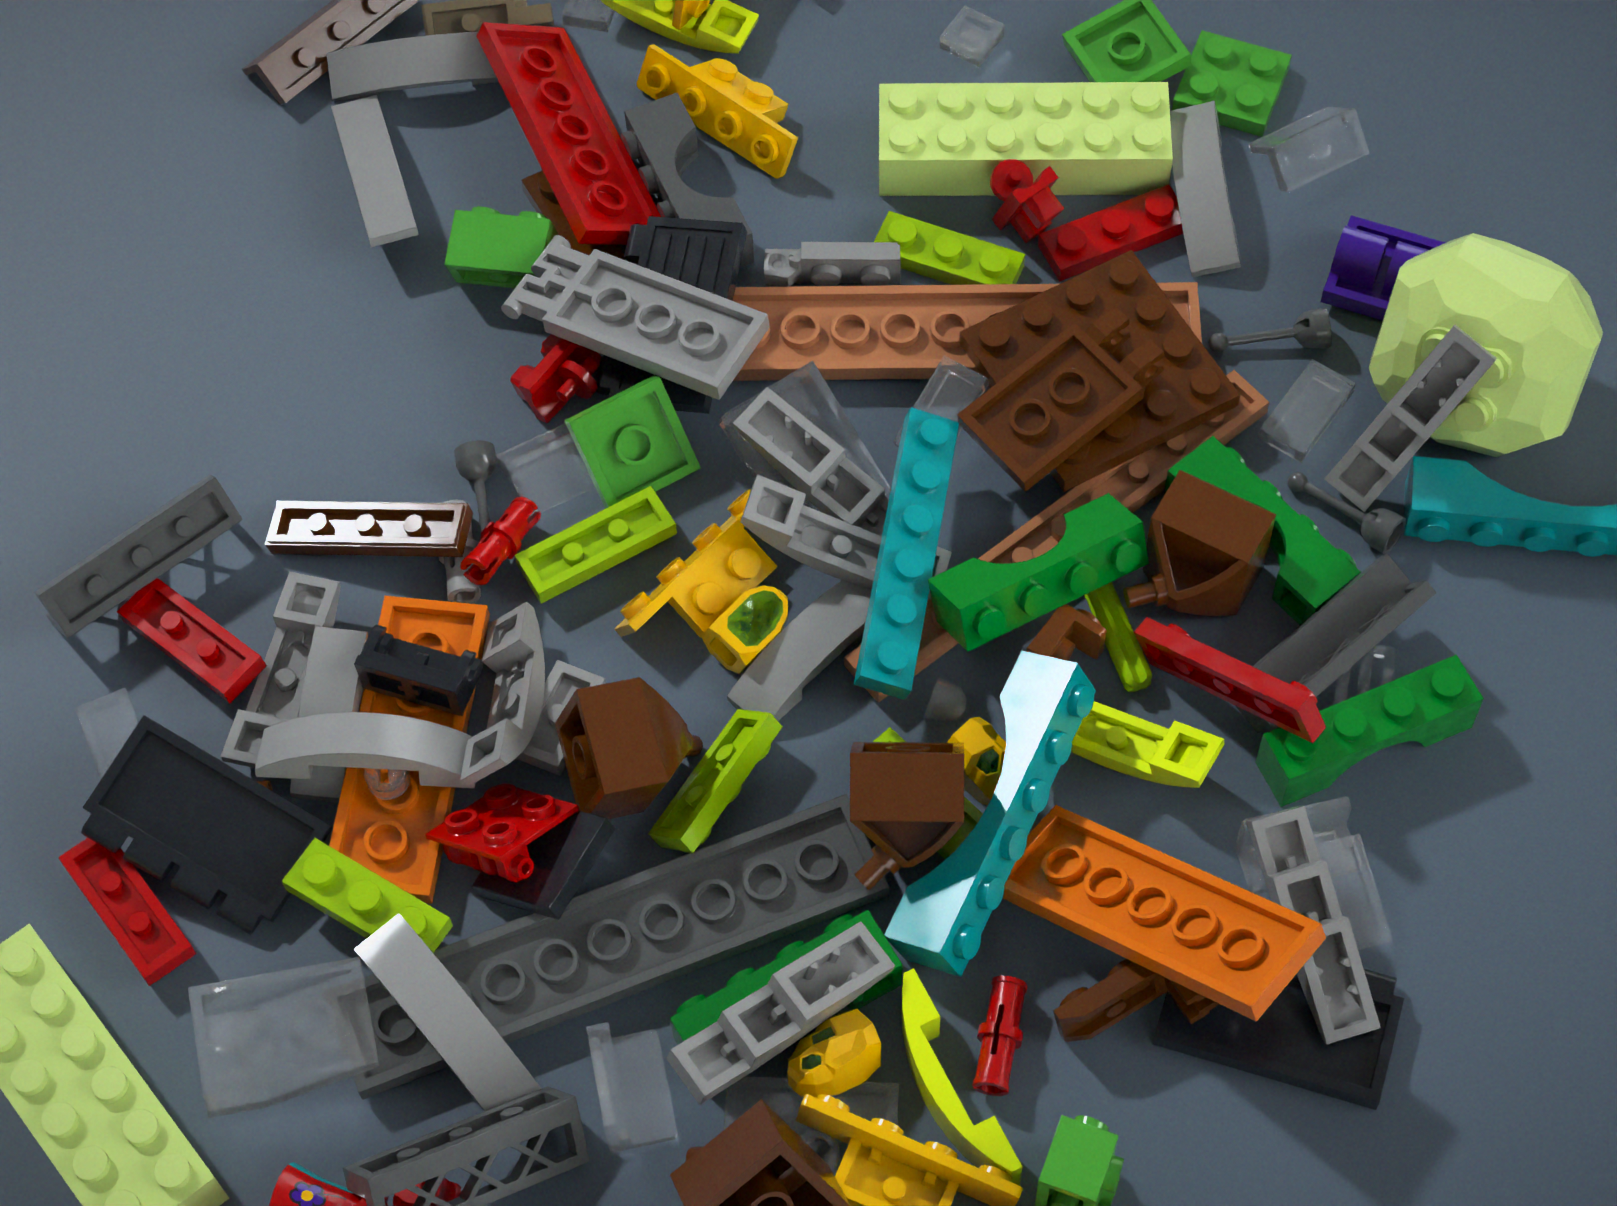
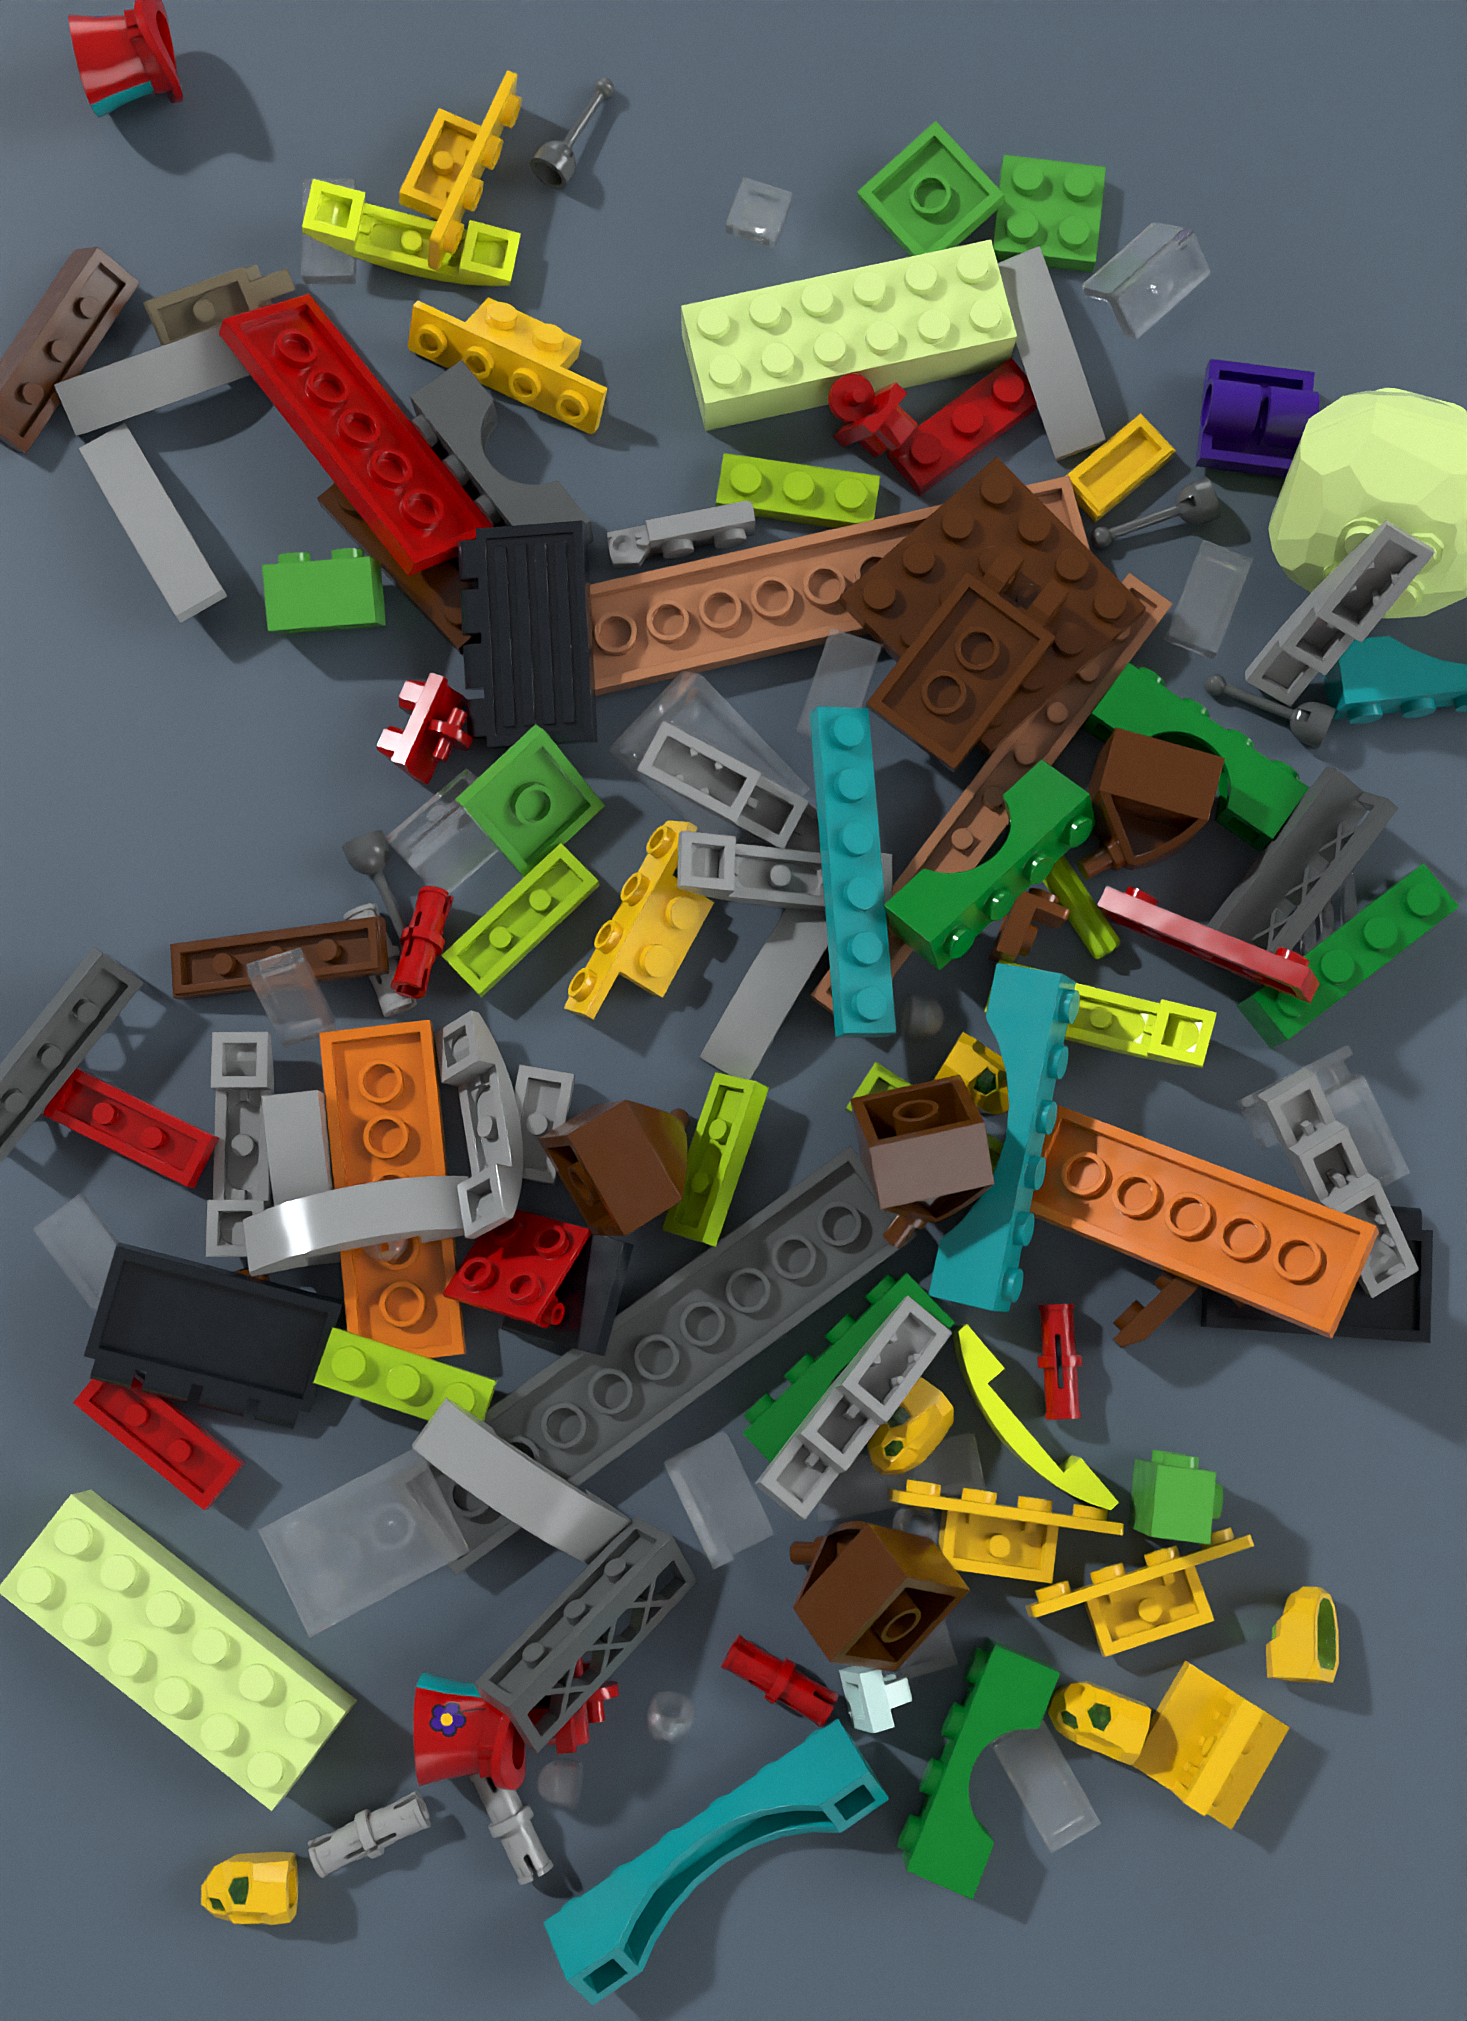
camera: 20 degrees left, 20 degrees up
(368, 555) = (291, 997): none -> clear tile
(417, 672) = (382, 1115): black hinge -> none
(639, 317) = (499, 658): light grey hinge -> none
(747, 627) = (705, 984): rock -> none
(1248, 290) = (1119, 467): none -> yellow tile

